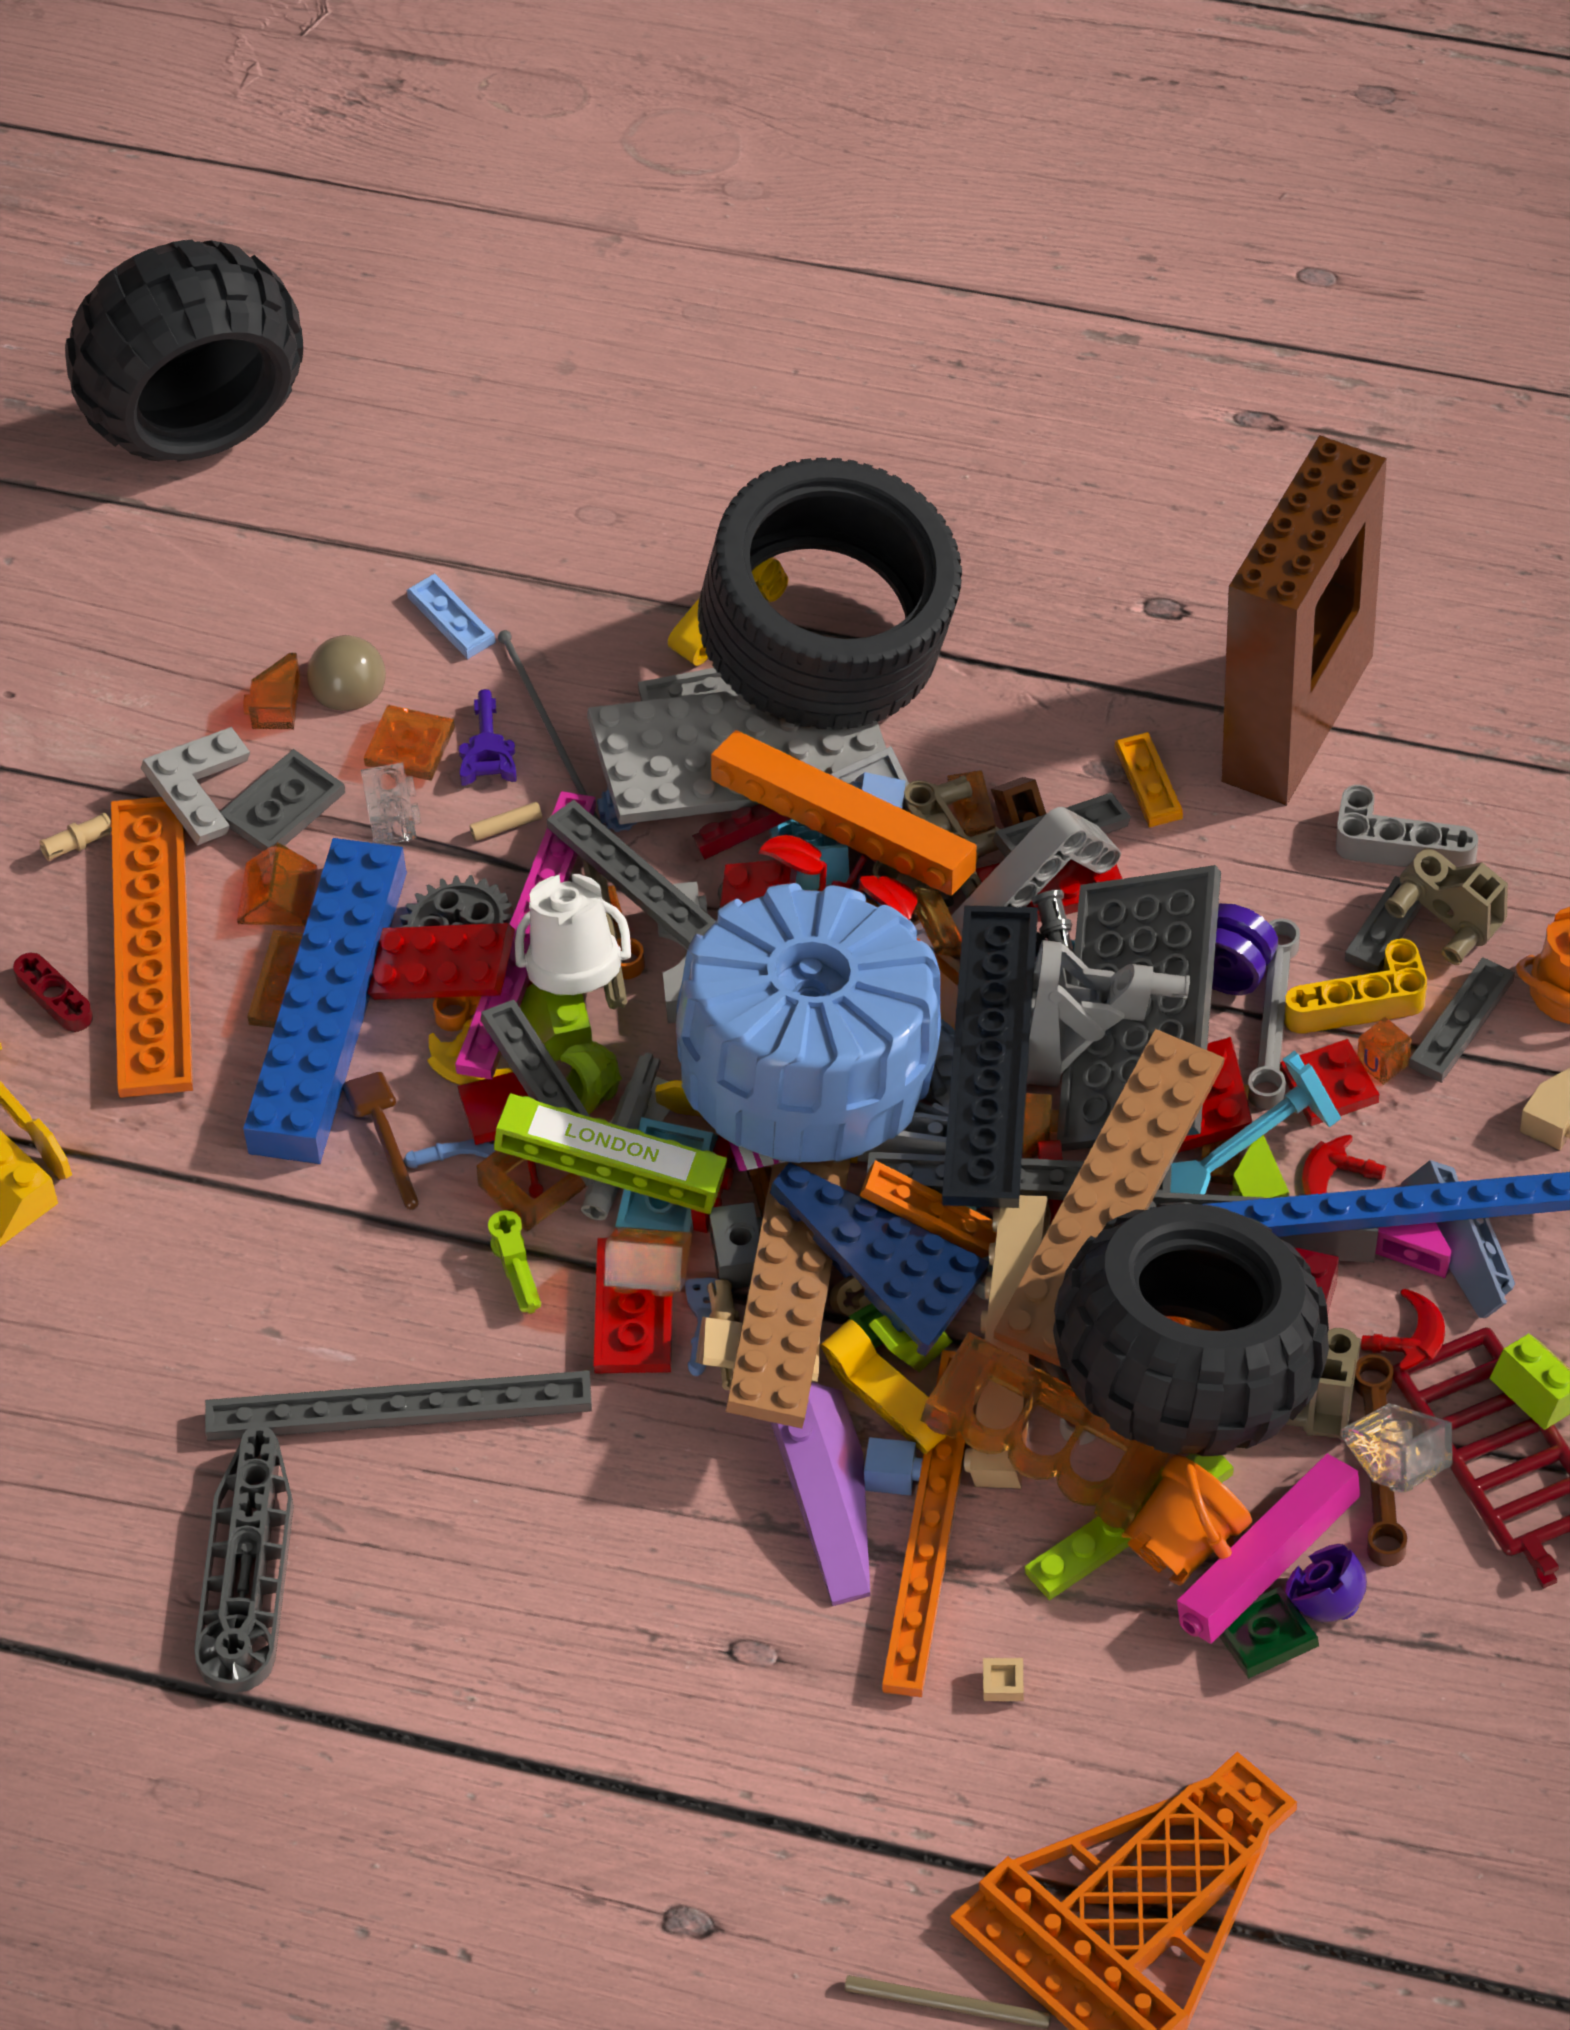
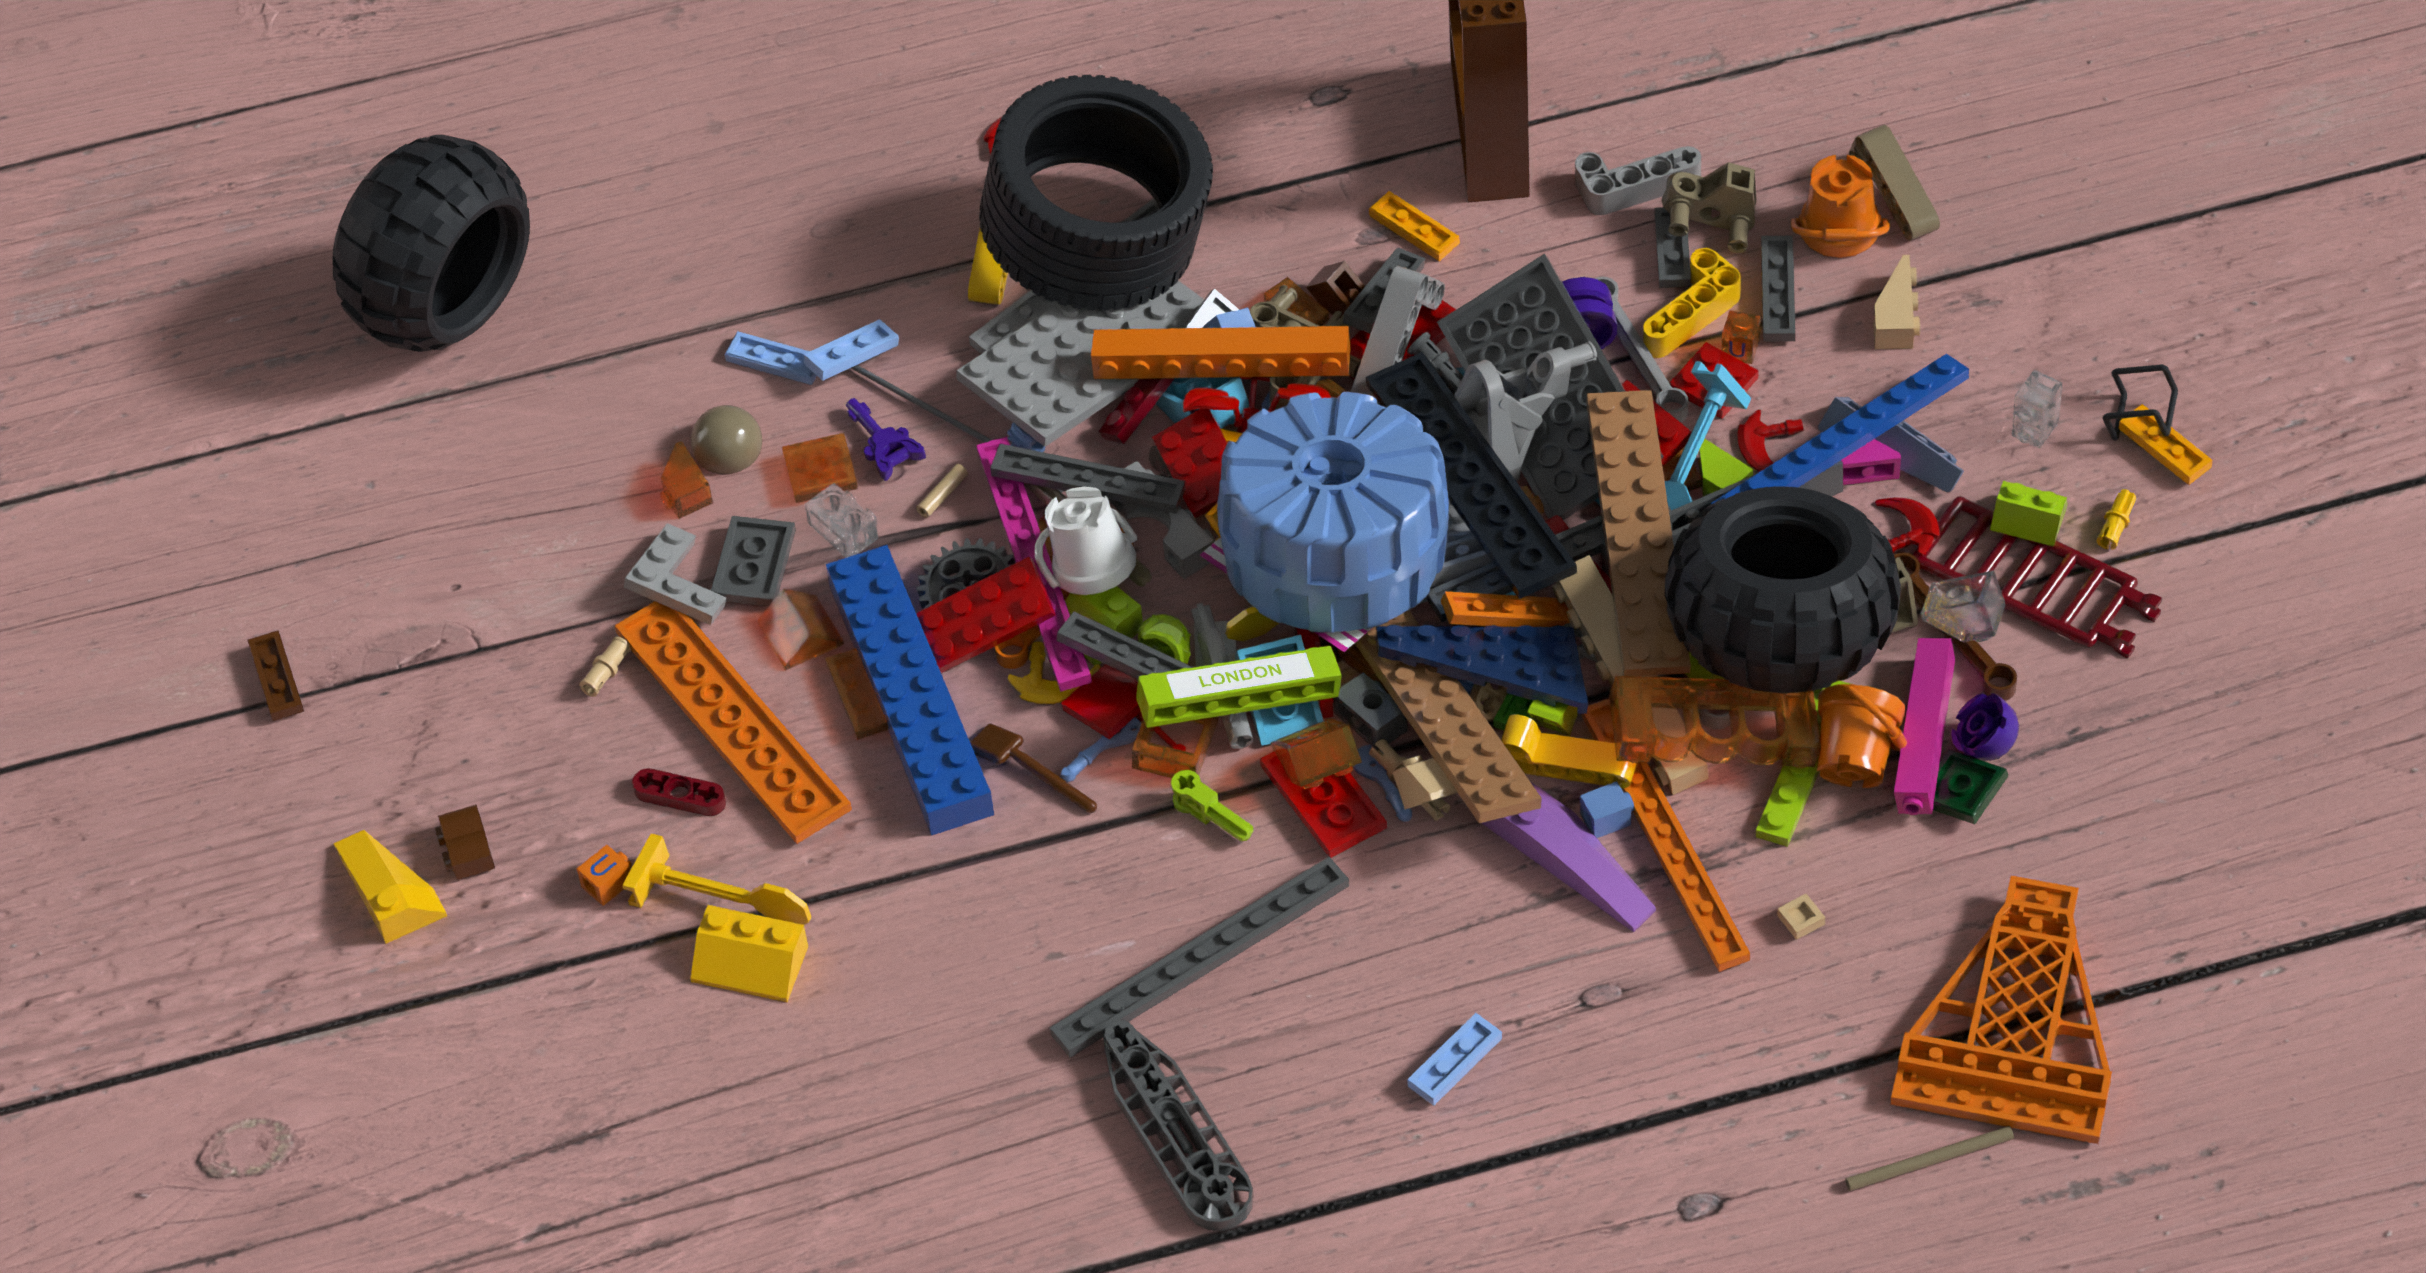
camera: 30 degrees left, 0 degrees up
(519, 641) = (851, 349): none -> light blue plate
(559, 1640) = (1454, 1059): none -> light blue plate

